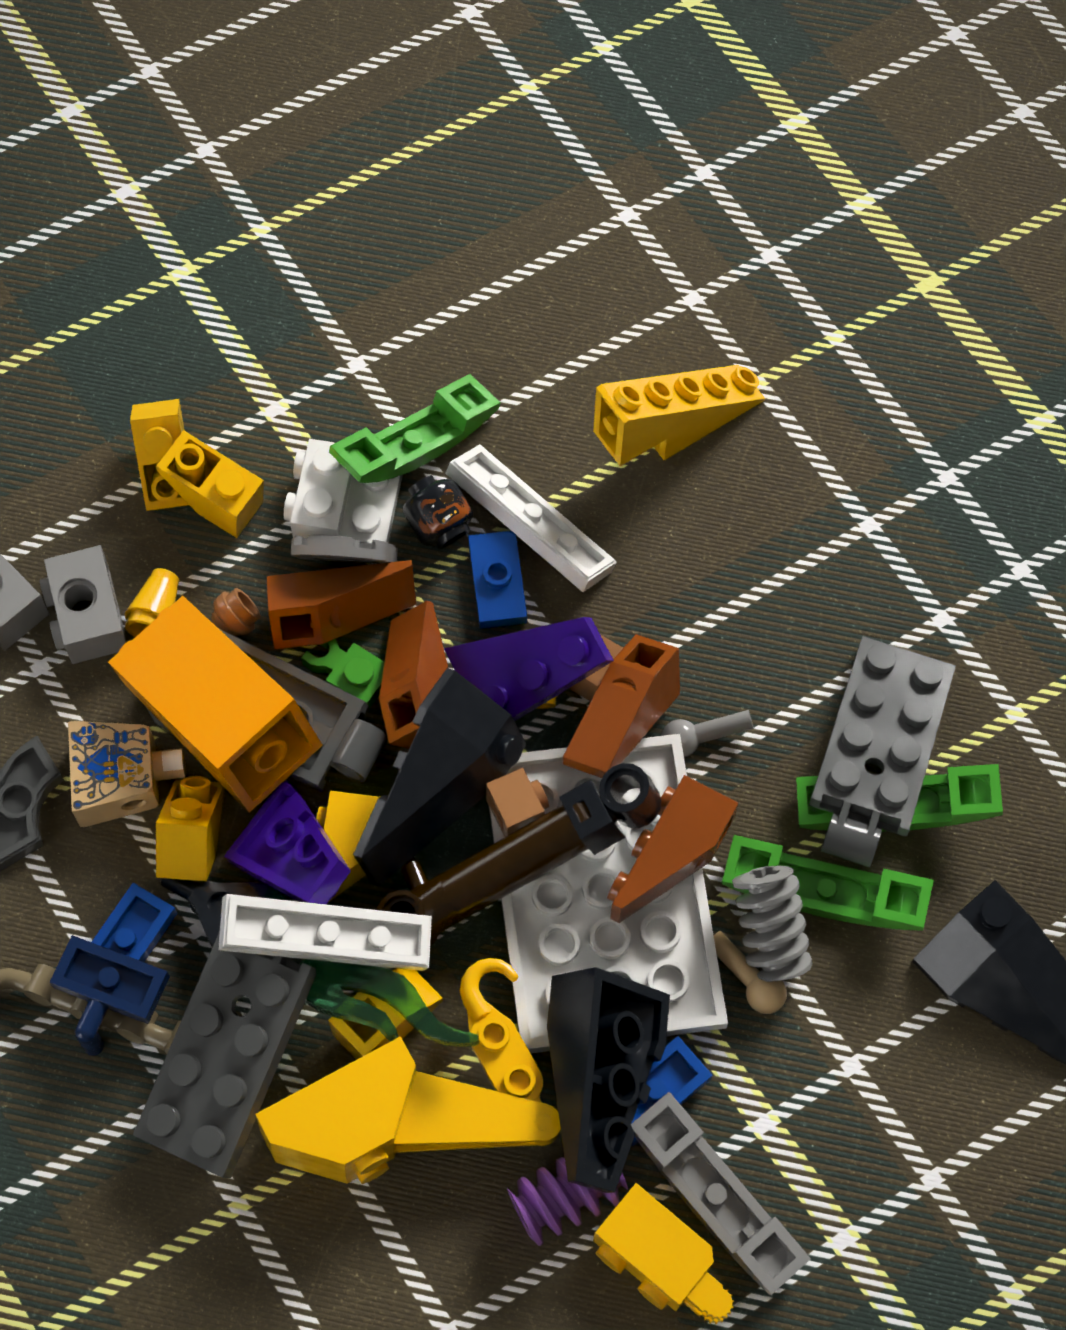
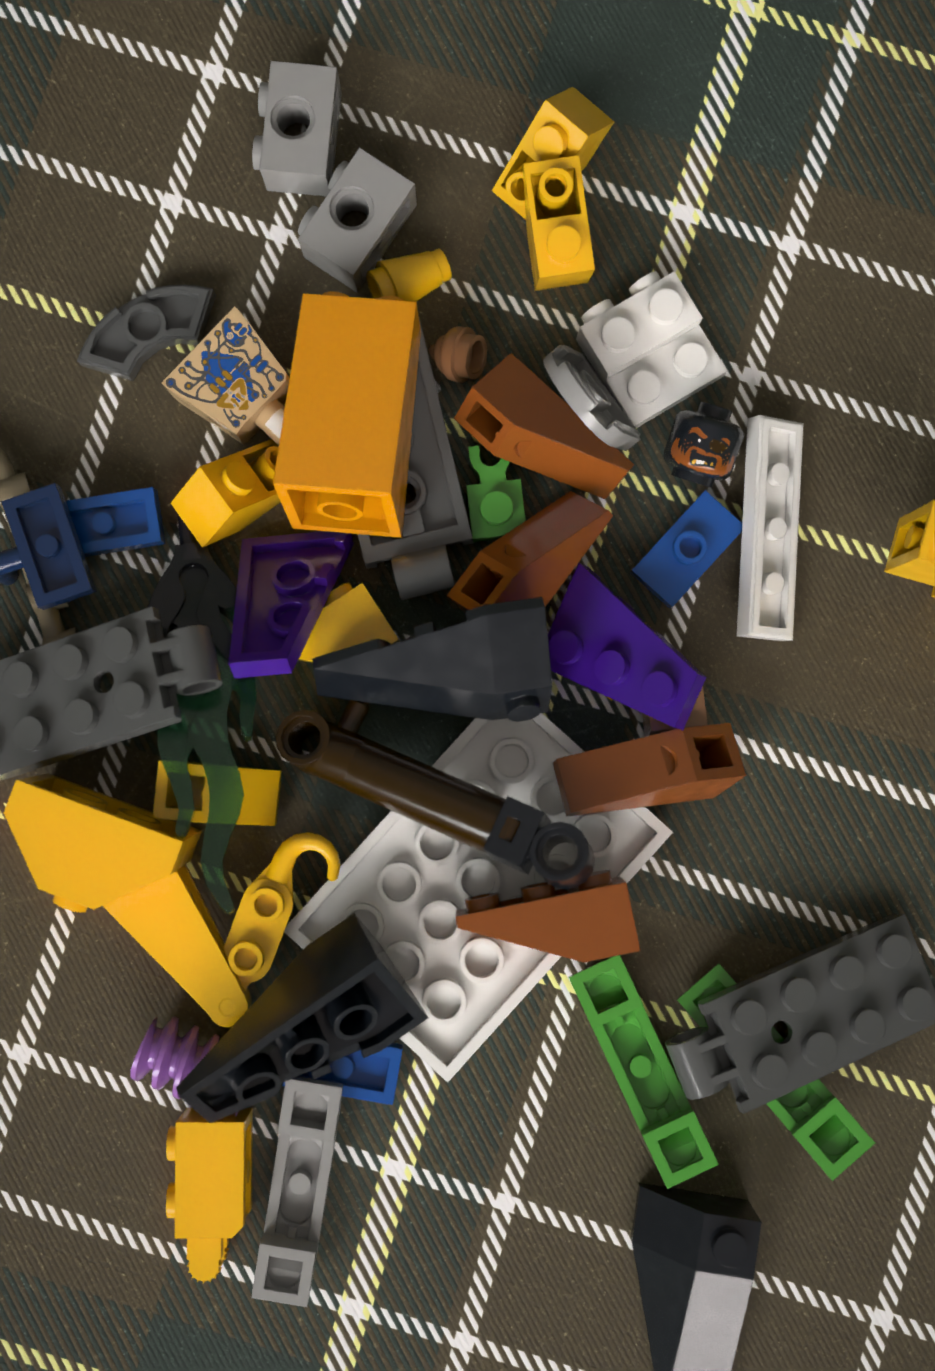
camera: 50 degrees right, 20 degrees up
(324, 932) = (214, 700): white tile -> none
(420, 437) = (760, 363): bright green slope -> none
(515, 800) = (484, 754): medium nougat plate -> none
(693, 735) = (685, 838): light grey bar -> none
(761, 995) = (506, 1083): tan bar -> none
(776, 922) = (562, 1057): light grey piece -> none

